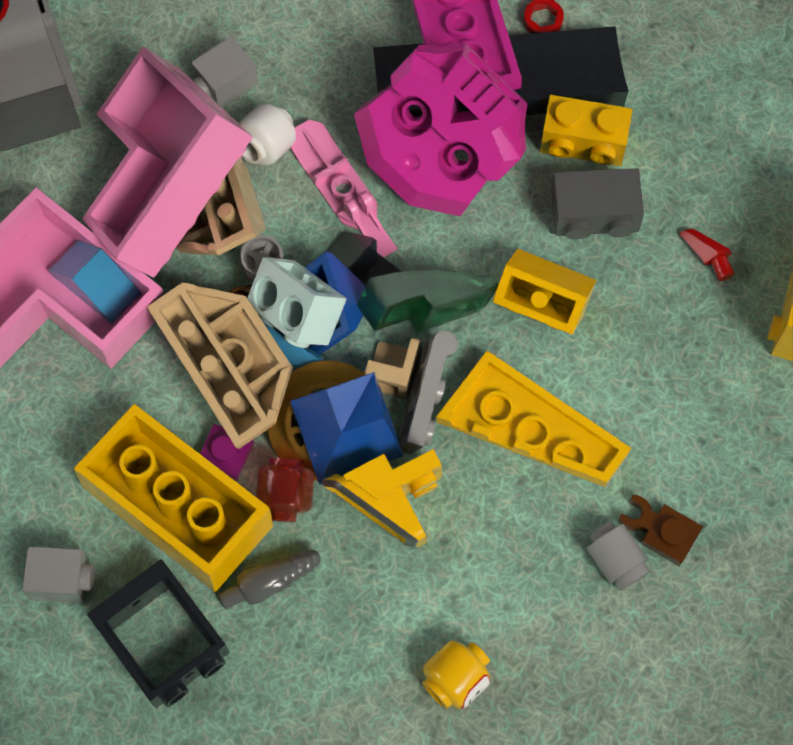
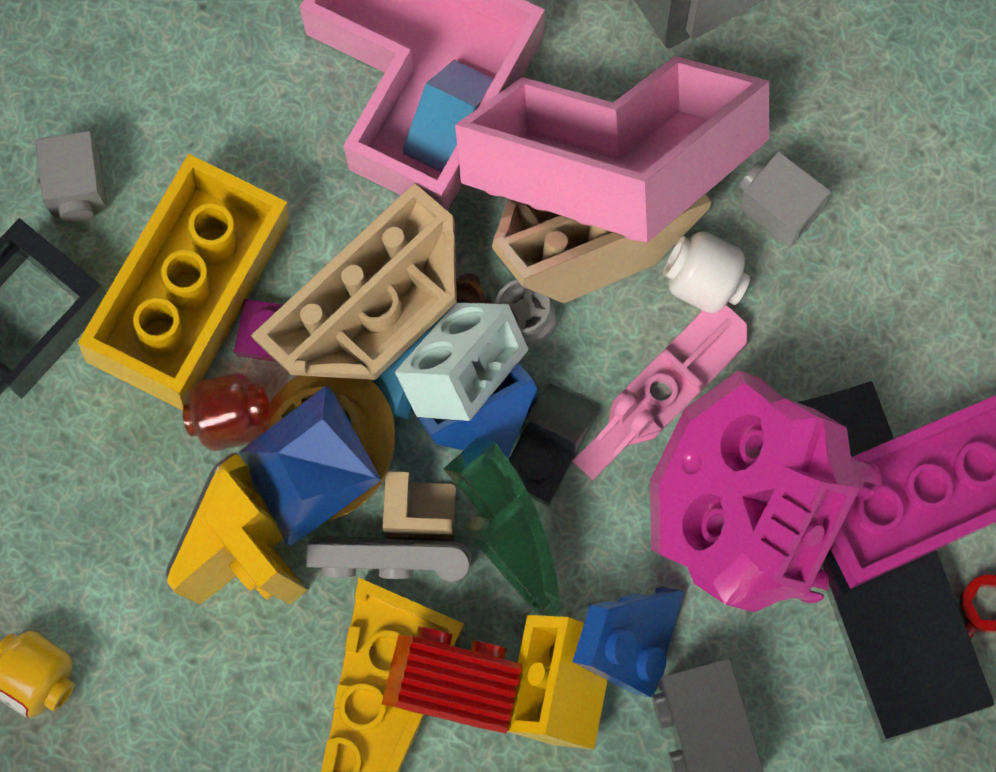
camera: 80 degrees right, 5 degrees up
(268, 578) = (112, 417): dark grey piece -> none
(528, 241) = (630, 639): none -> blue wing
(532, 359) = (453, 682): none -> red brick
(586, 130) = (816, 693): yellow brick -> none

